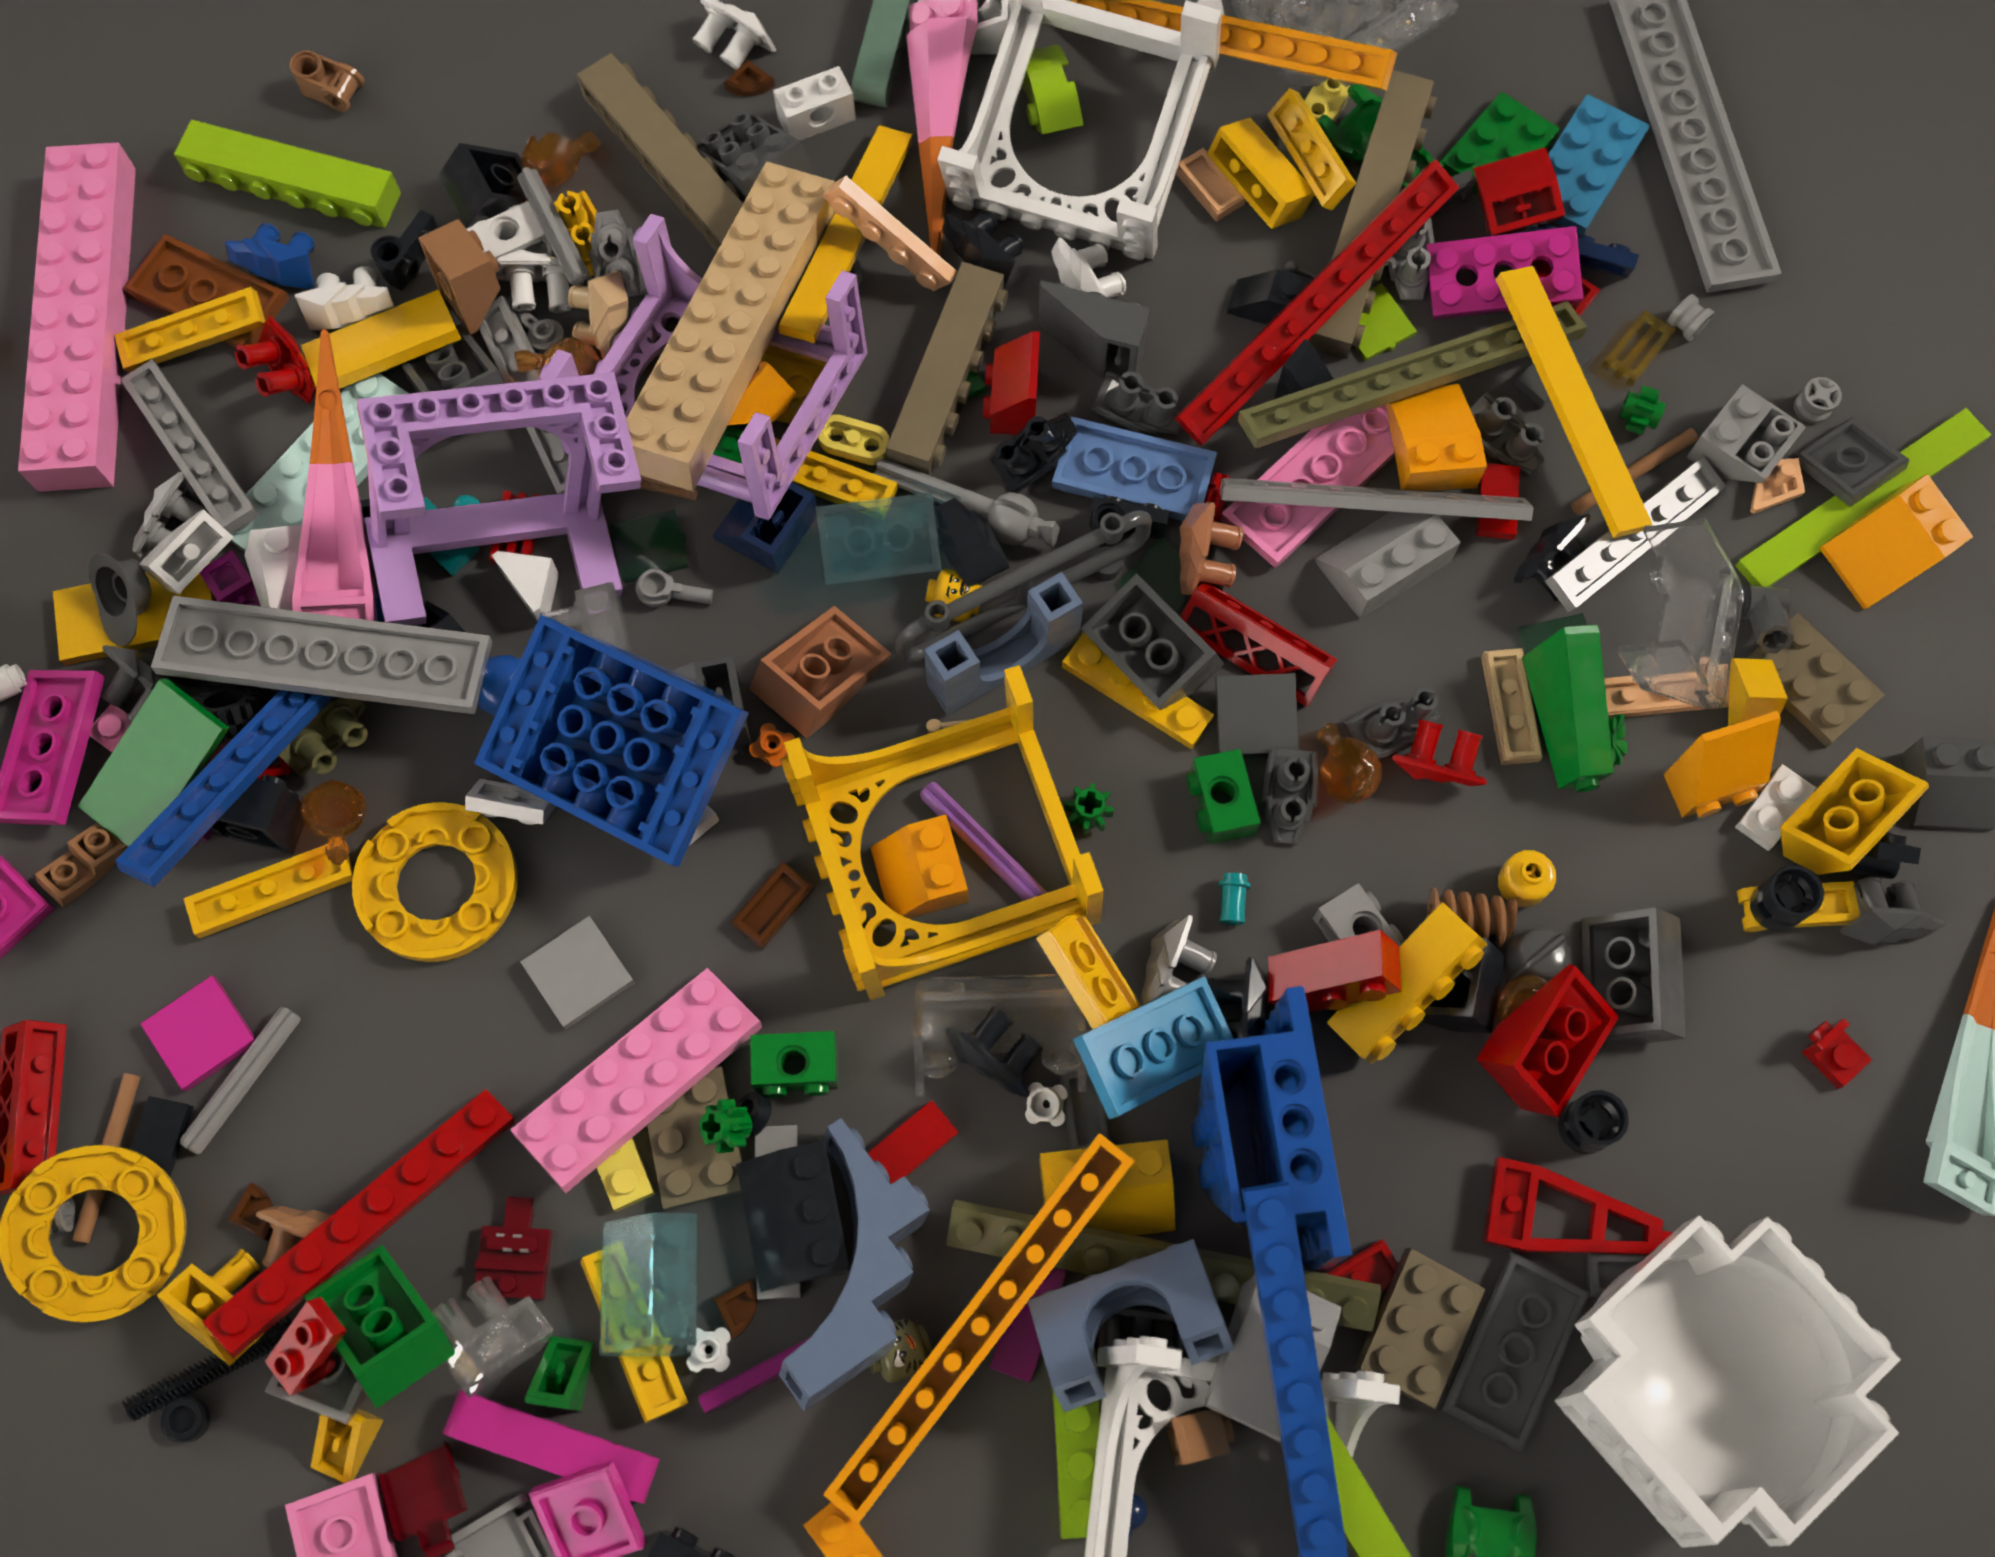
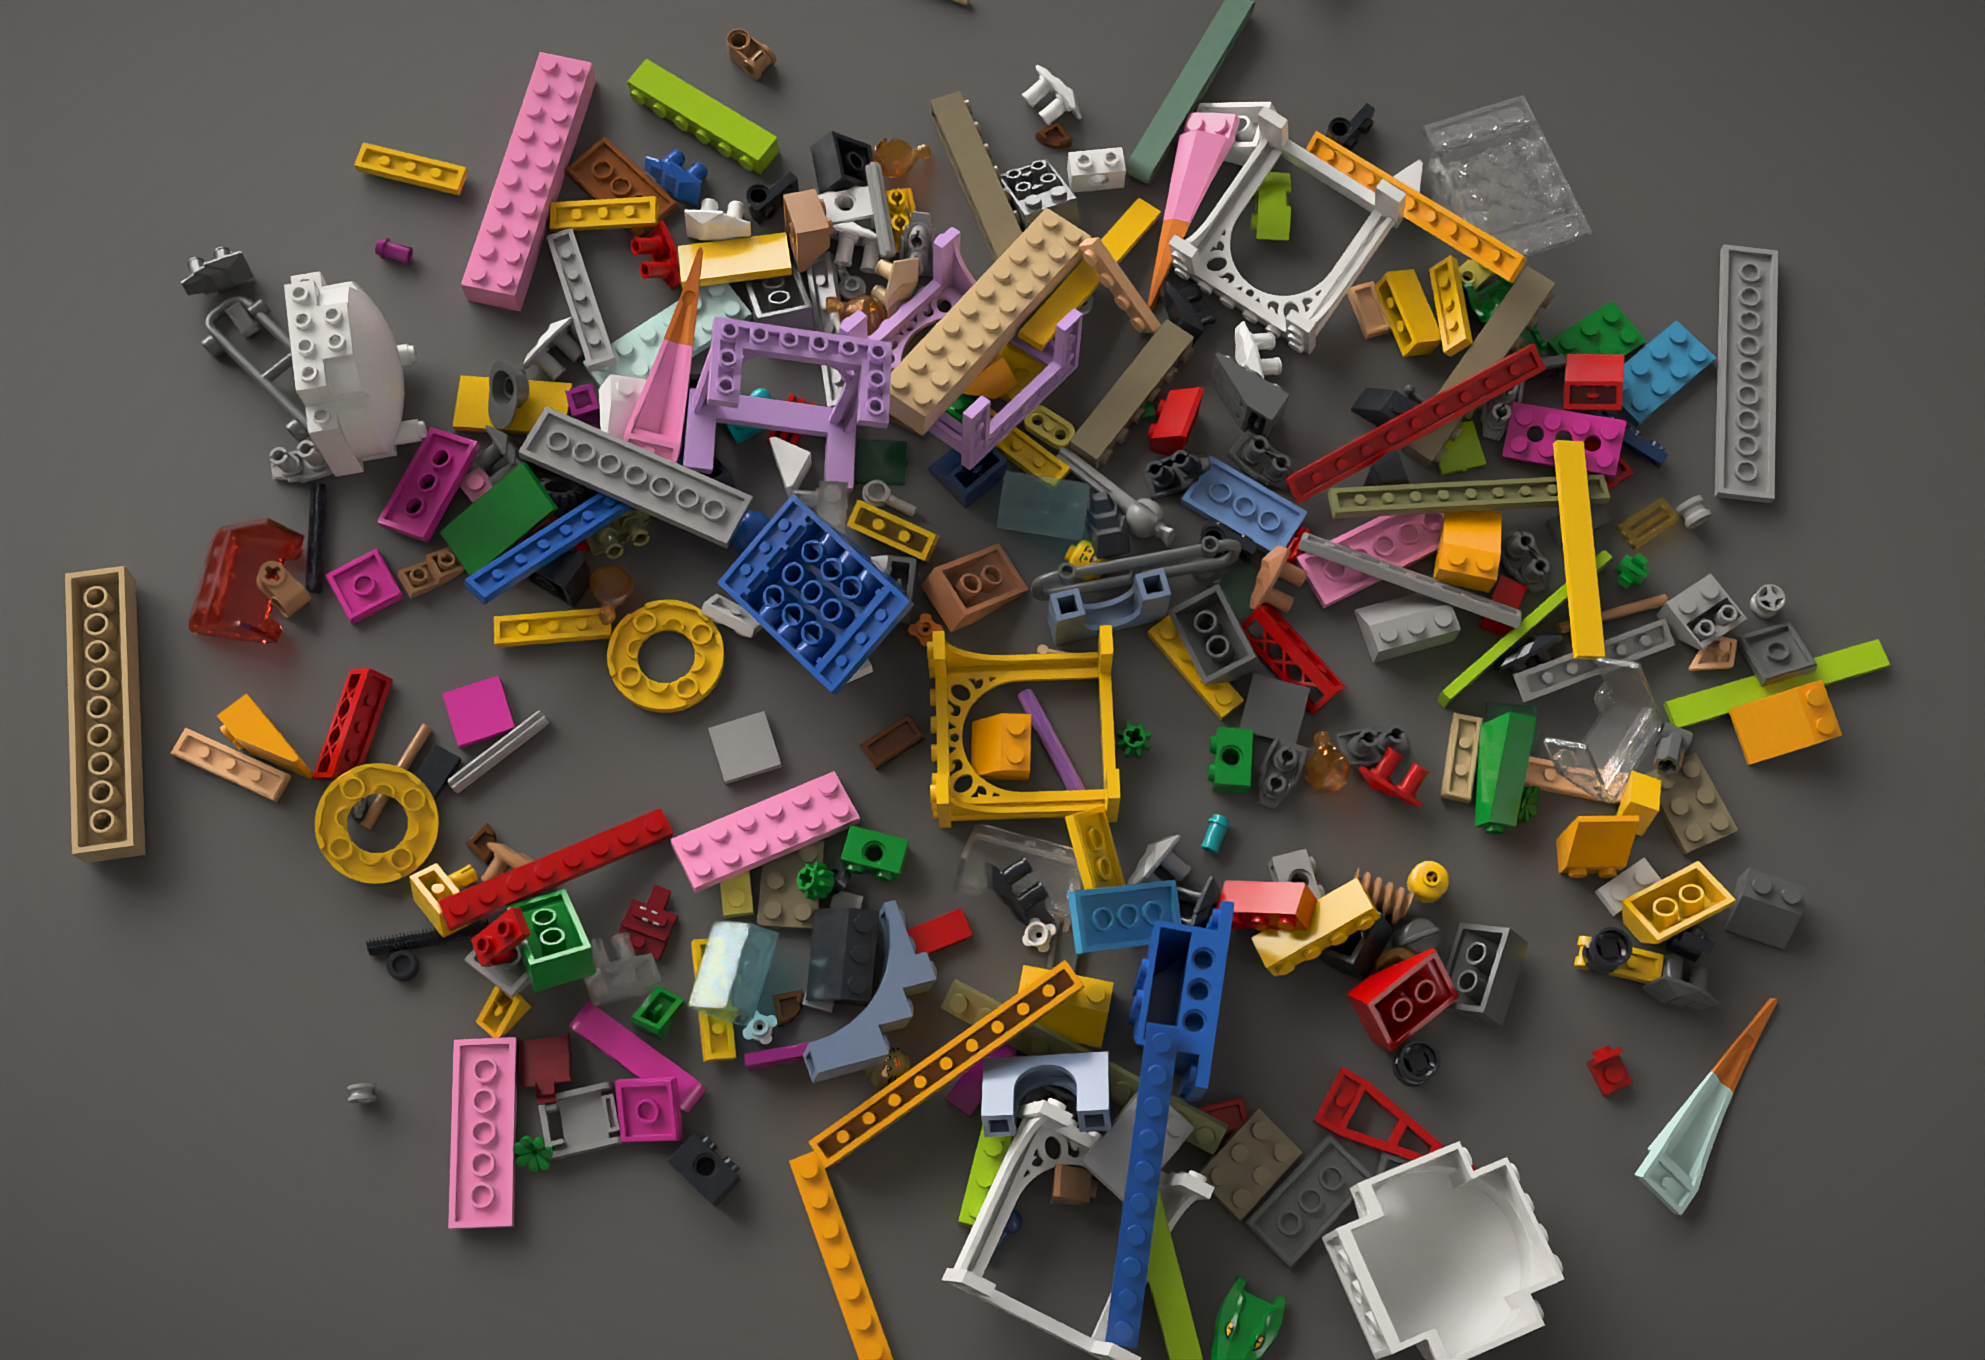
camera: 15 degrees right, 0 degrees up
(186, 551) = (560, 375): white slope -> none
(691, 628) = (893, 530): none -> yellow brick
(1522, 540) = (1511, 639): none -> lime tile

